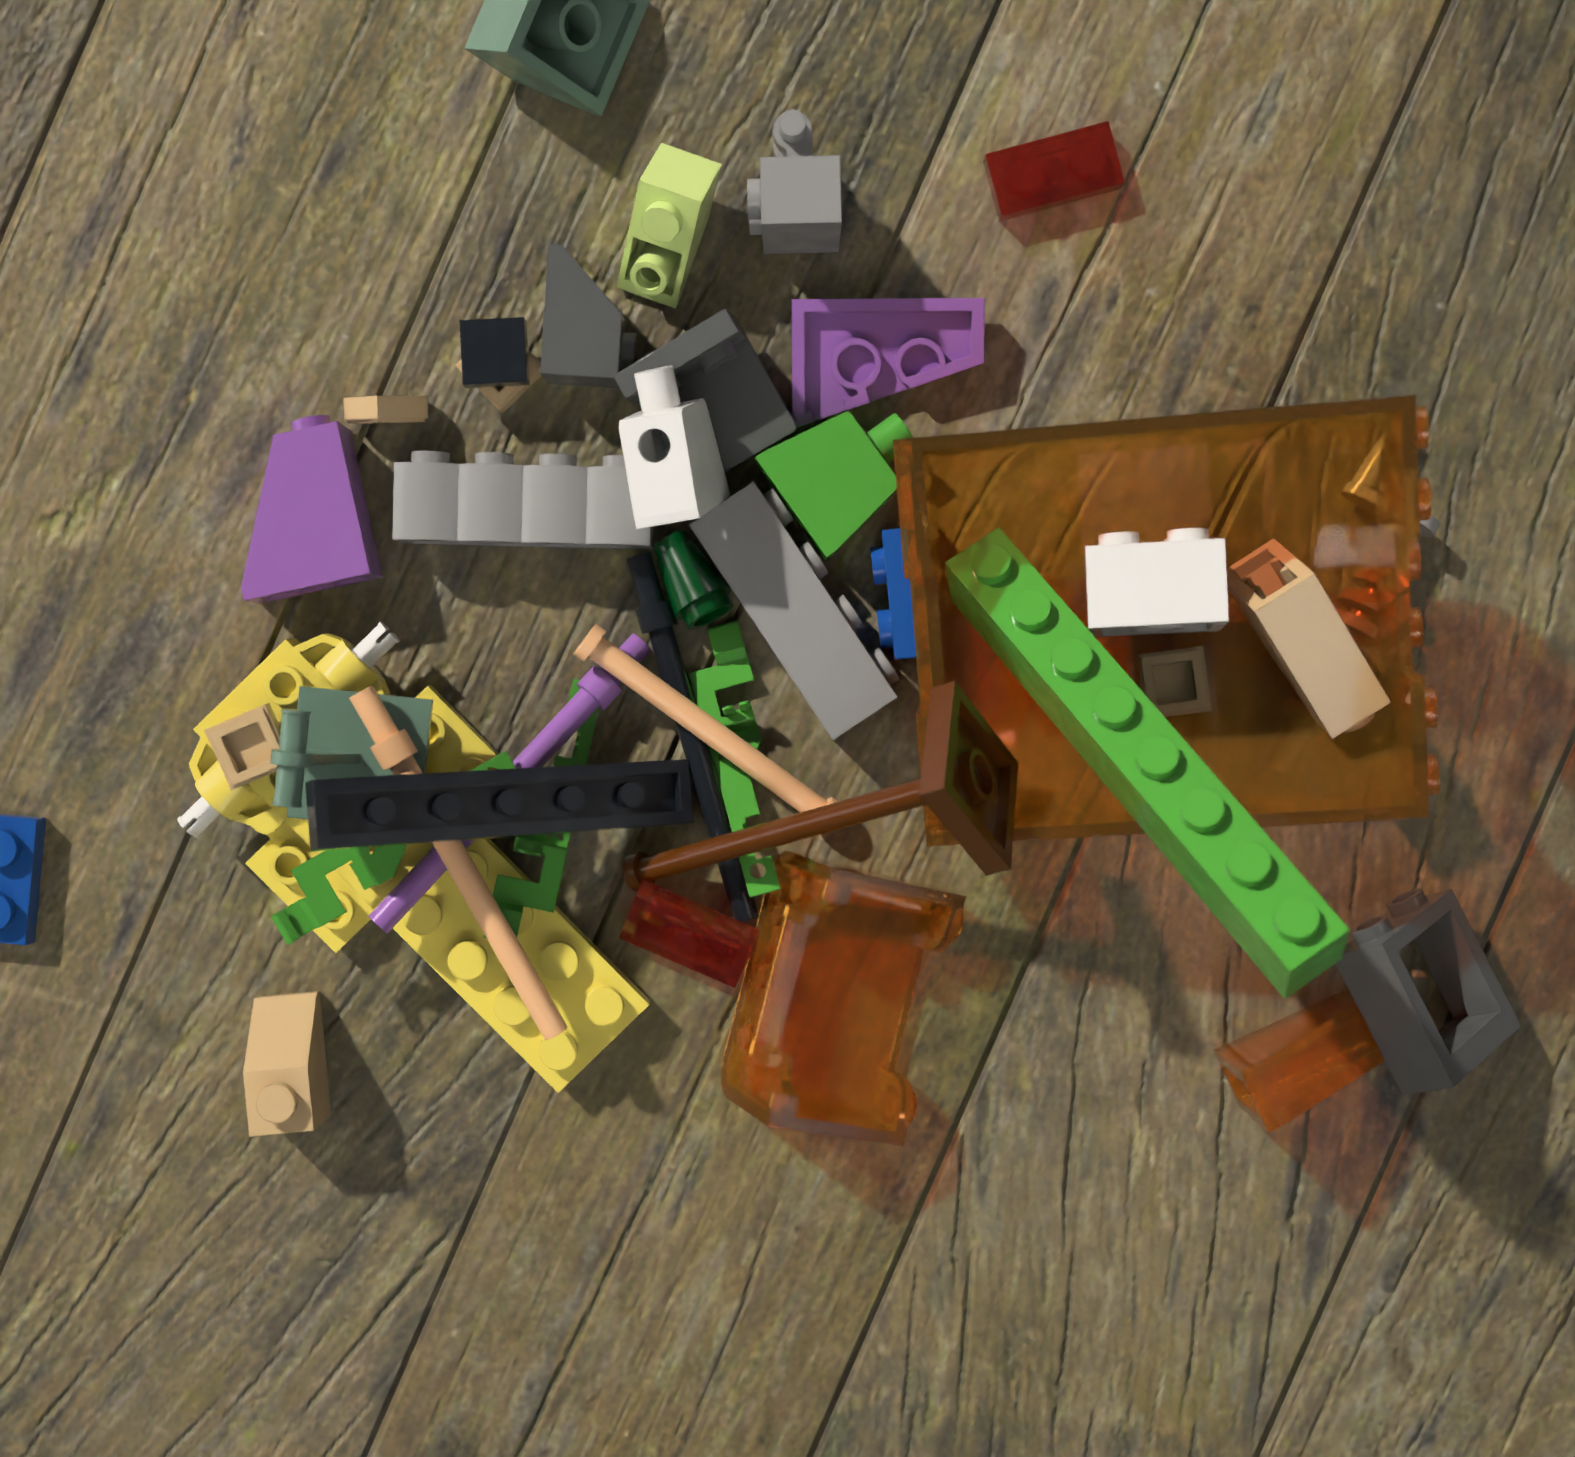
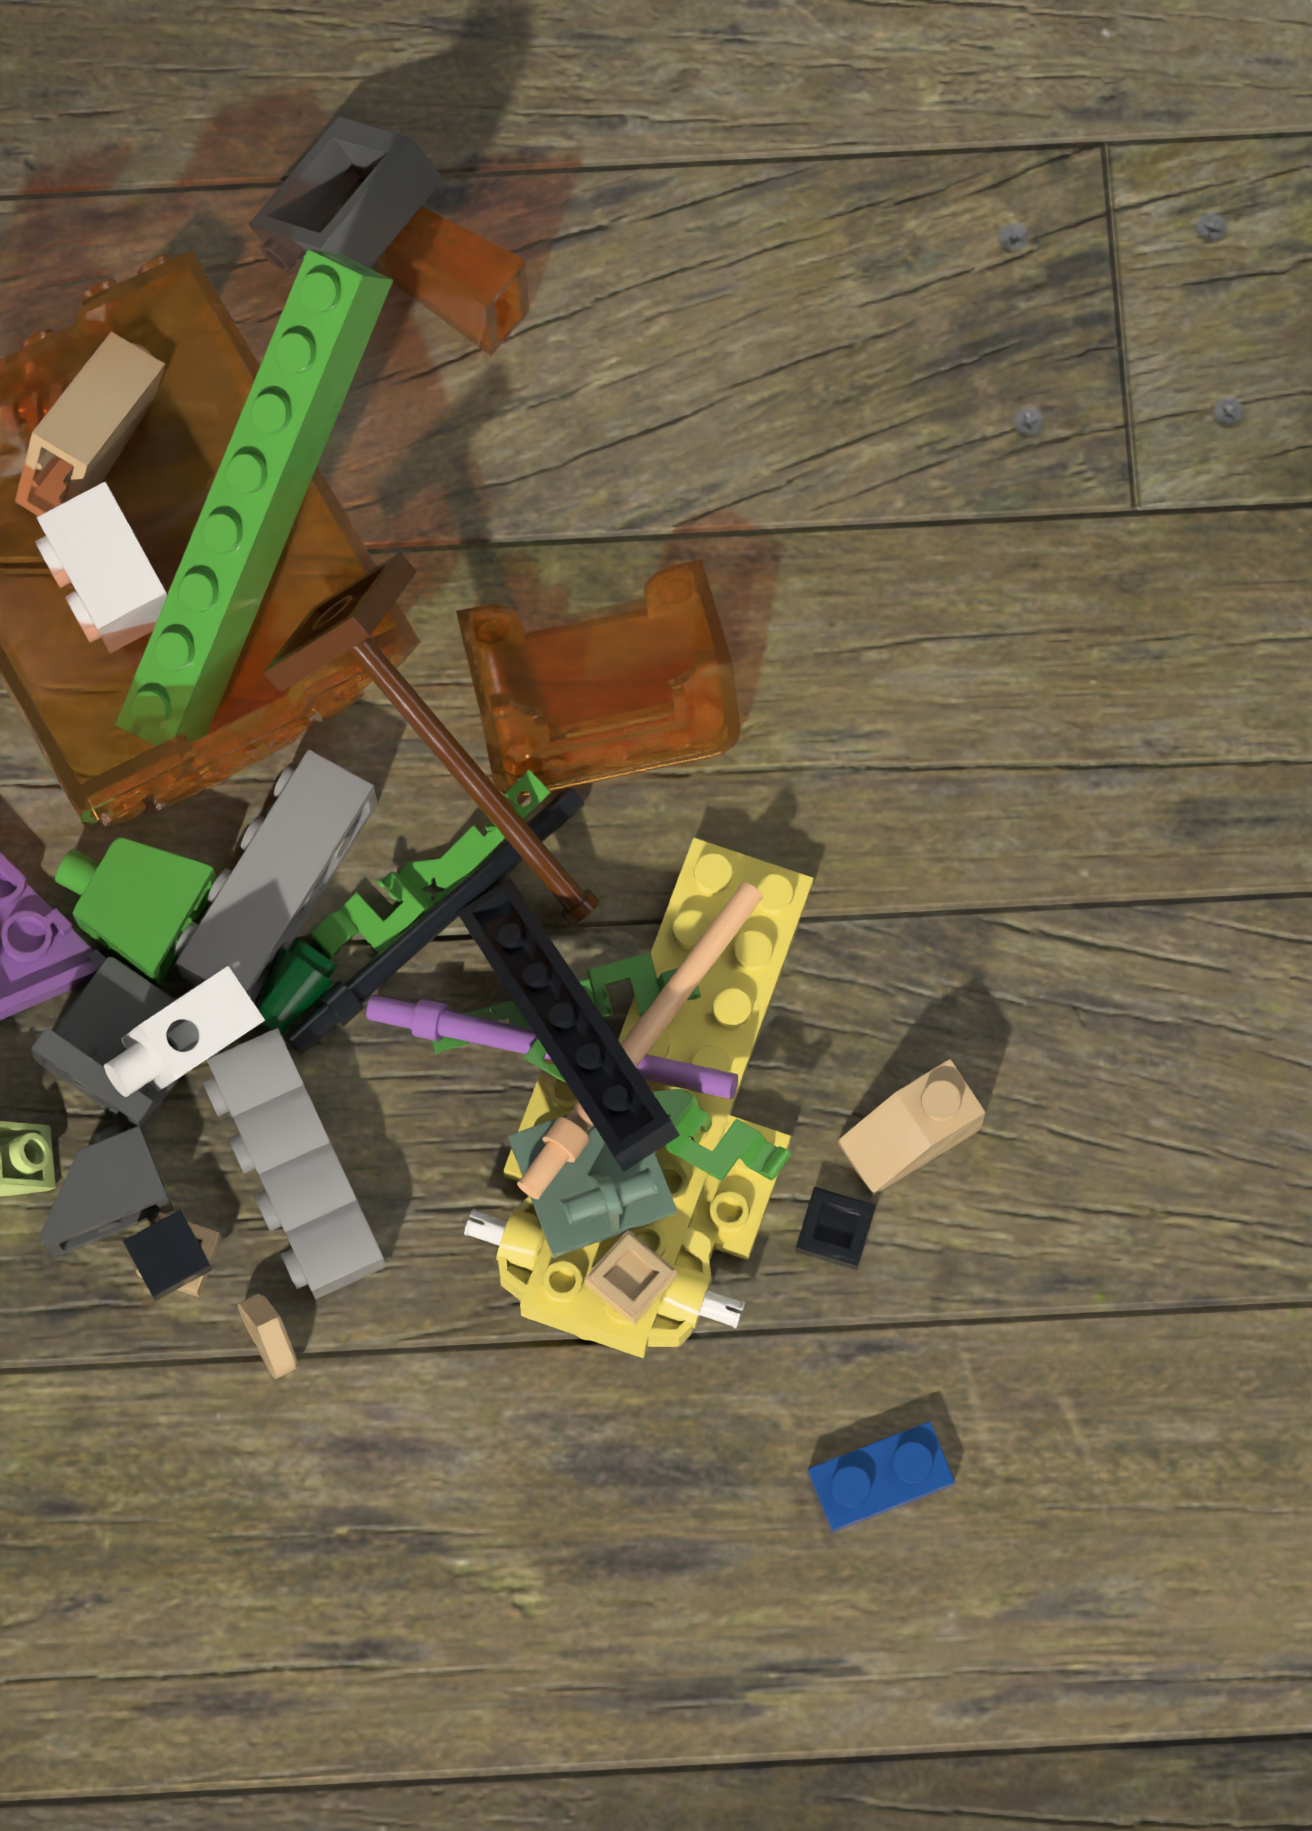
camera: 115 degrees left, 15 degrees down
(240, 950) = (835, 1228): none -> black tile
(310, 516) = (399, 1350): medium lavender slope -> none
(689, 933) = (612, 833): clear red plate -> none
(697, 721) = (392, 1031): light nougat bar -> none
(895, 623) = (197, 811): blue plate -> none
(1175, 680) = (173, 520): tan tile -> none

